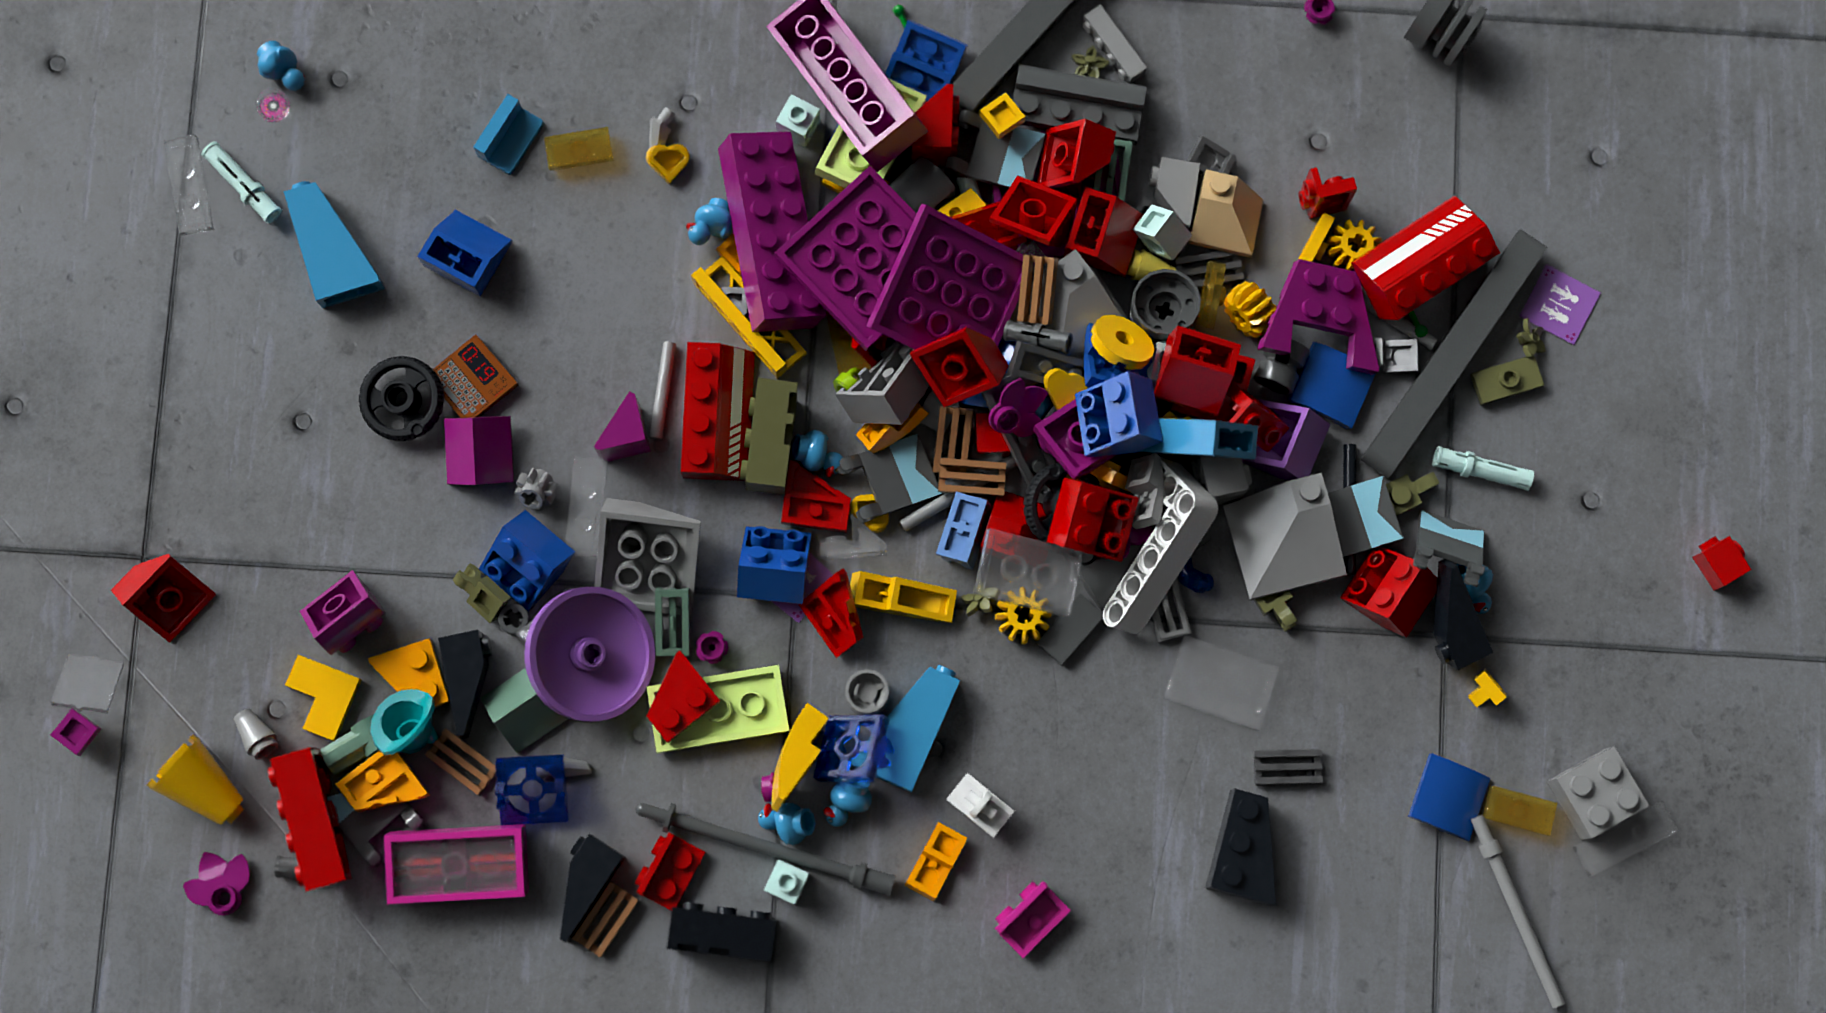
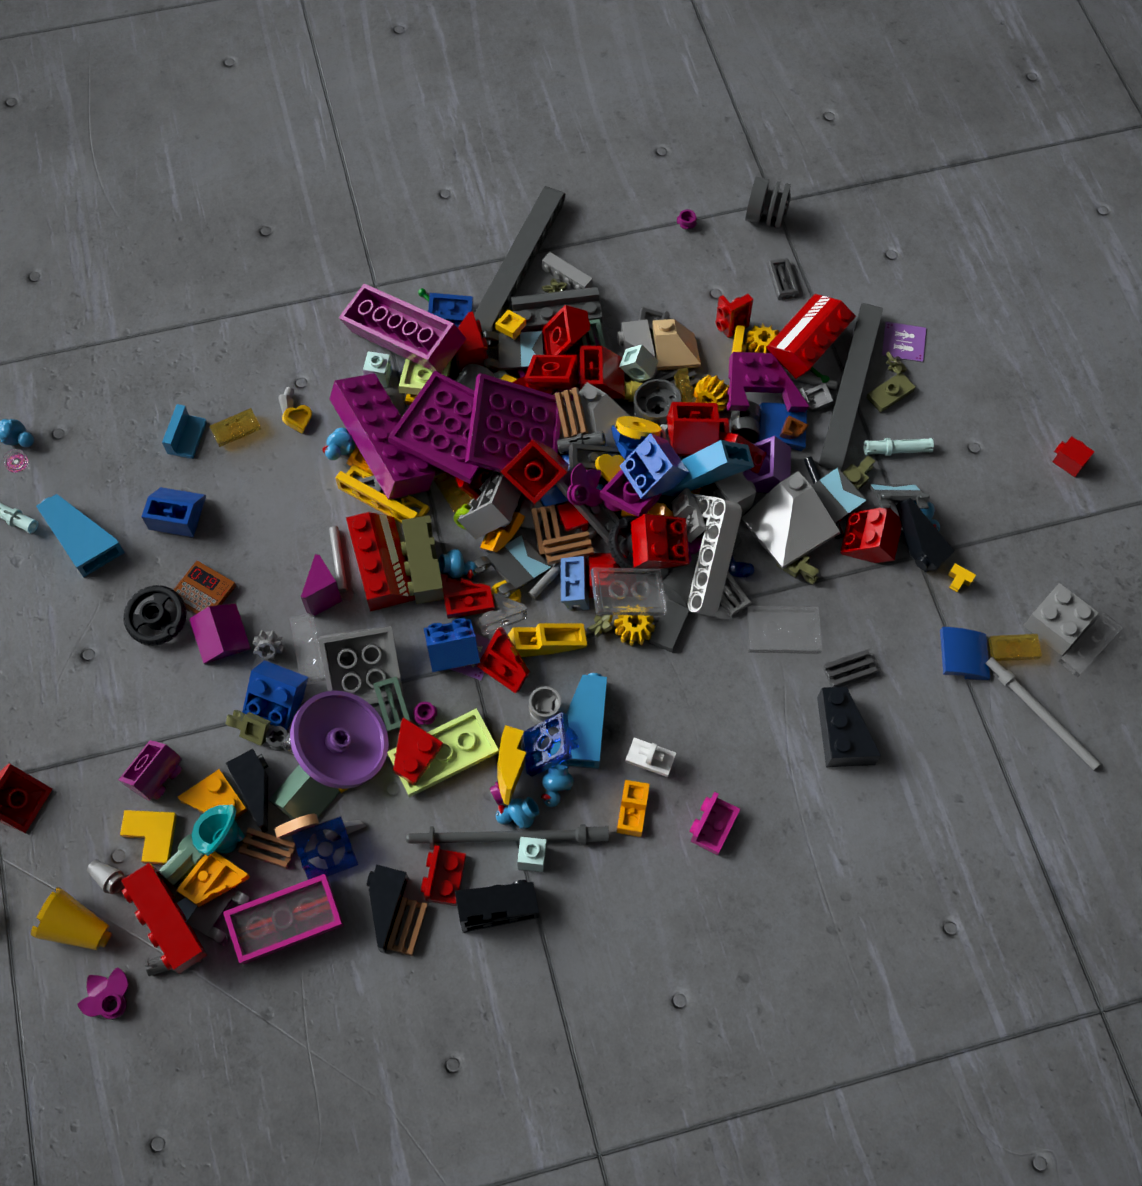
camera: 15 degrees left, 15 degrees down
(504, 751) = (296, 825): none -> light nougat tile
(1343, 397) = (793, 428): none -> dark orange tile
(1421, 175) = (786, 292): none -> flat silver tile

